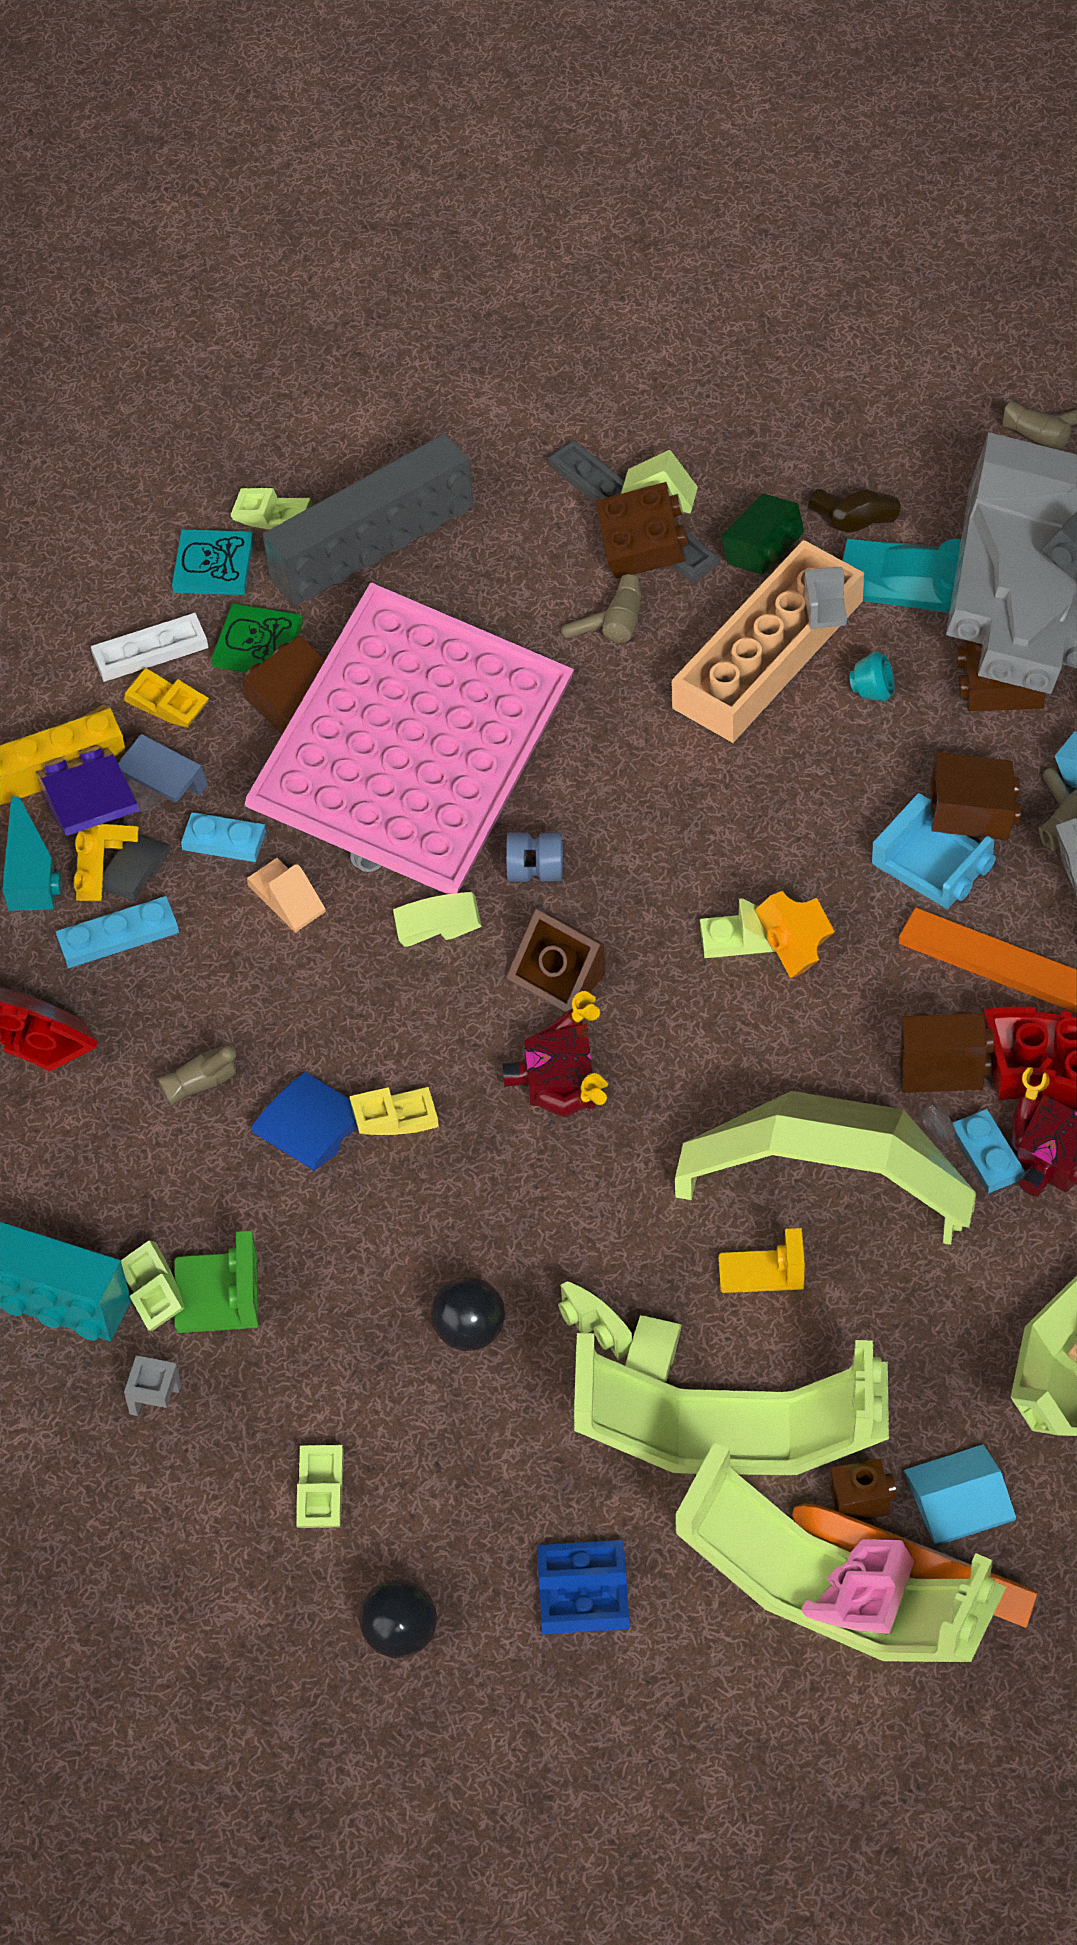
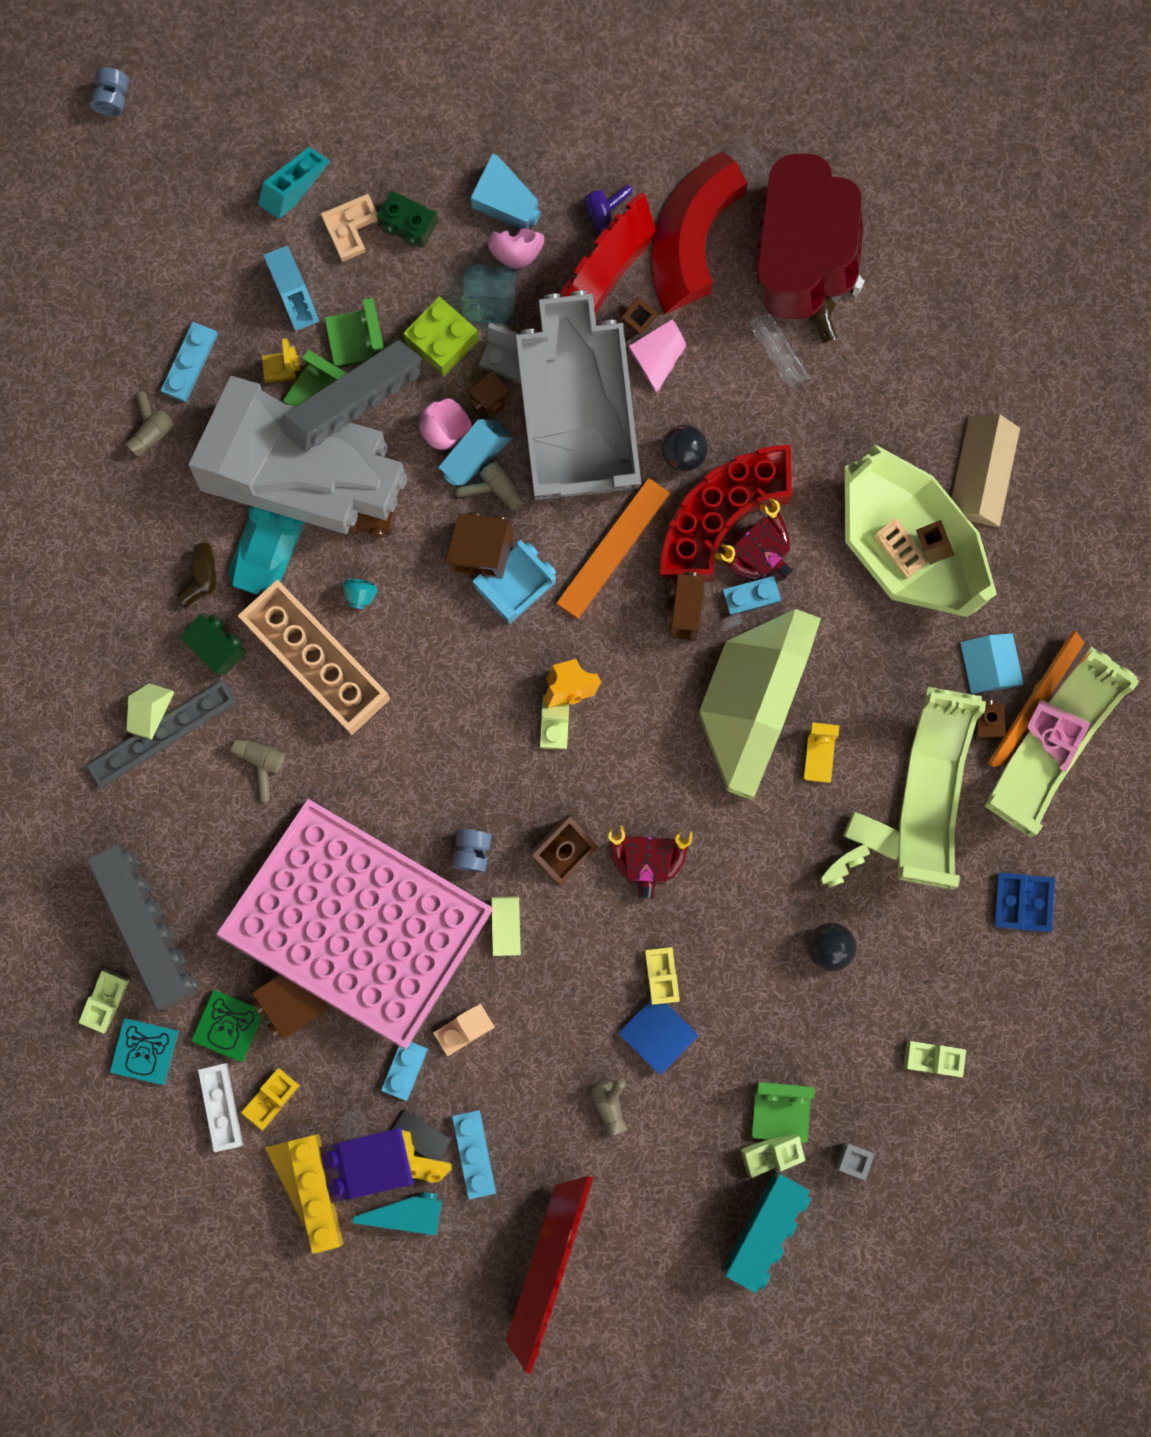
camera: 85 degrees left, 25 degrees up
(162, 769) = (344, 1110): sand blue panel -> none
(398, 1618) = (1042, 1020): black piece -> none
(642, 530) = (194, 728): reddish brown brick -> none
(825, 597) = (303, 610): light grey panel -> none

